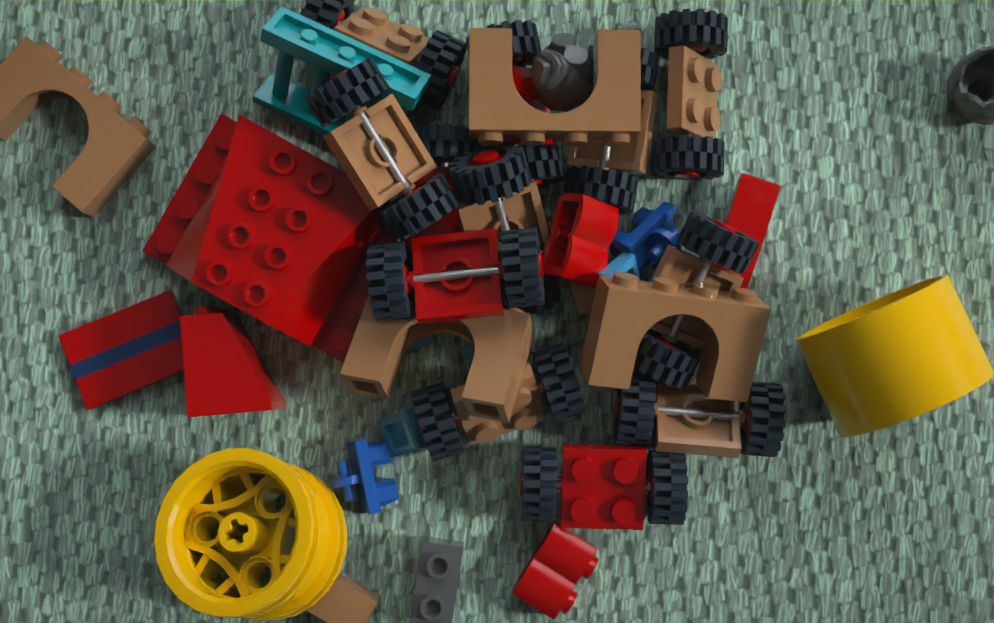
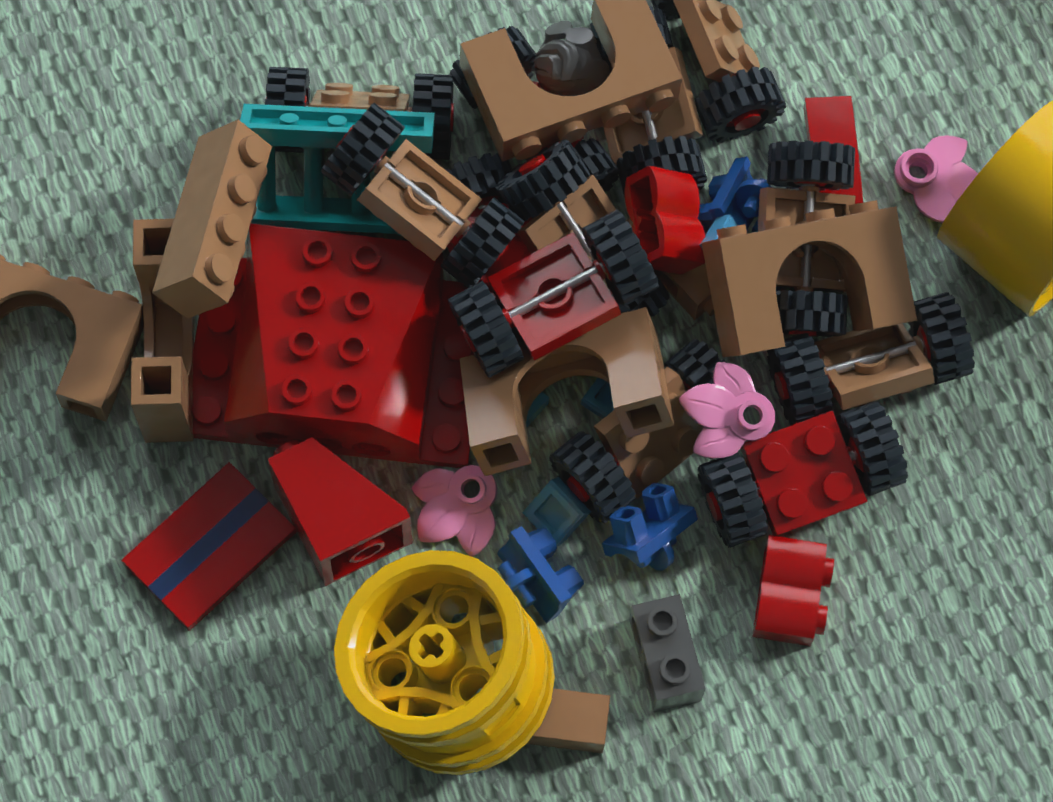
camera: 25 degrees left, 15 degrees down
(173, 132) = (165, 374): none -> medium nougat arch
(207, 102) = (212, 220): none -> medium nougat brick
(323, 398) = (451, 512): none -> bright pink plate
(465, 481) = (650, 534): none -> blue hips
(556, 417) = (721, 409): none -> bright pink plate
(827, 280) = (944, 178): none -> bright pink plate

